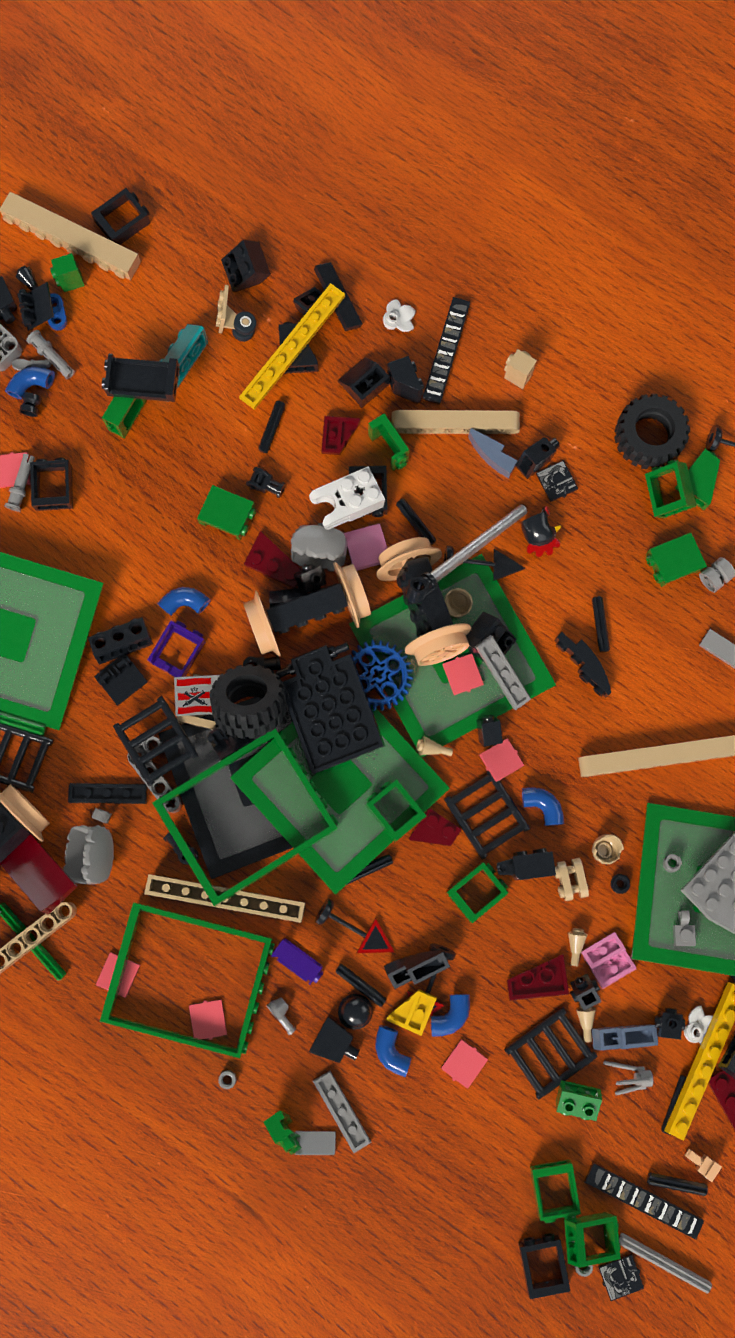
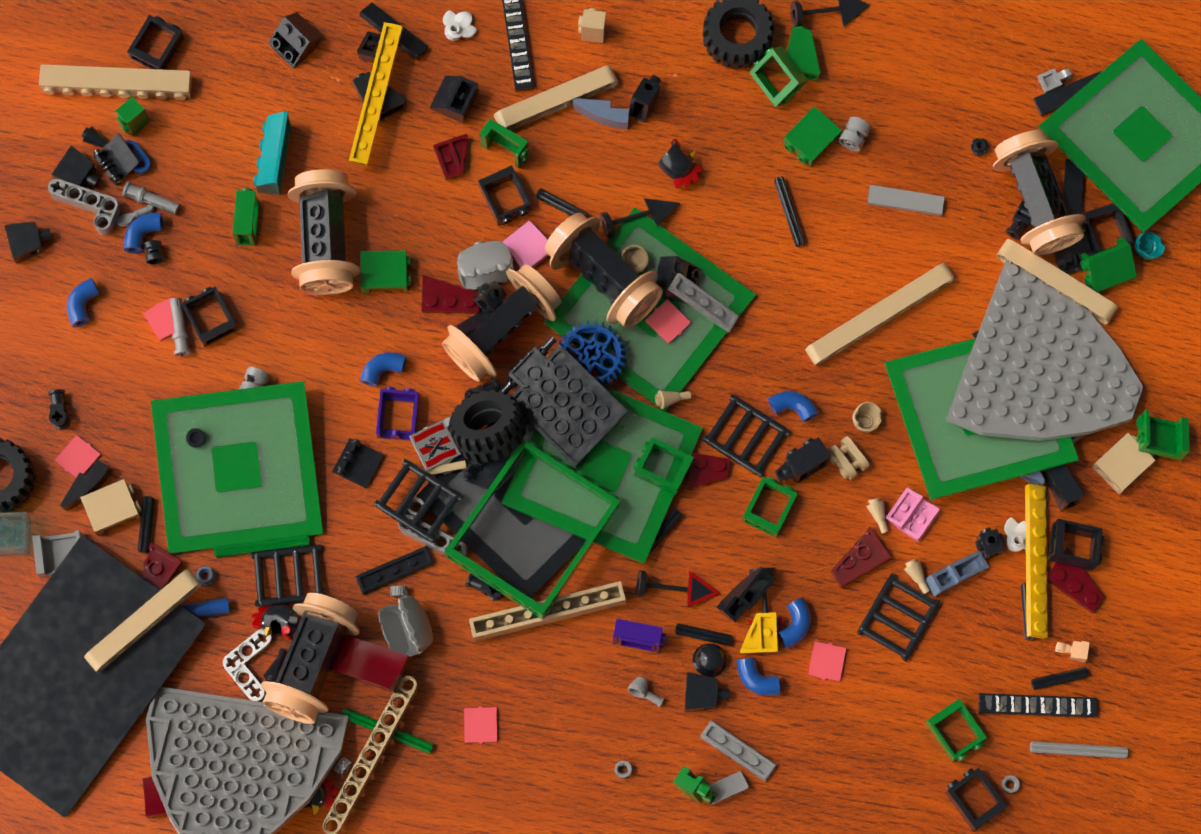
camera: 25 degrees left, 5 degrees down
(63, 561) = (255, 378): none -> light grey wheel
(120, 966) = (612, 677): green door -> none
(130, 643) = (341, 437): black brick -> none
(141, 378) = (253, 182): black panel -> none
(184, 452) = (323, 232): none -> brick
(208, 1019) = (580, 727): coral piece -> none
(242, 324) = (317, 96): plate -> none
(264, 482) = (406, 229): black connector -> none
(271, 426) = (388, 178): black axle -> none
(346, 498) = (489, 210): white brick -> none
(404, 379) = (493, 81): black slope -> none
(427, 582) = (599, 251): flat silver piece -> none
(489, 730) = (714, 360): black brick -> none
(501, 760) = (737, 382): coral piece -> none
(556, 481) = (672, 113): piece -> none
(576, 1250) = (988, 754): green window -> none
(578, 1100) = (941, 644): green brick -> none
(585, 991) = (904, 548): black brick -> none
(591, 667) = (781, 266): black slope -> none
(600, 622) = (771, 223): black axle -> none
(621, 1277) = (1047, 780): piece -> none
(623, 620) = (789, 211): none -> black axle
(626, 883) = (892, 437): black plate -> none
(642, 1078) = (987, 602): light grey plant -> none
(672, 869) = (927, 397): light grey axle -> none
(684, 933) = (965, 456): light grey plate -> none

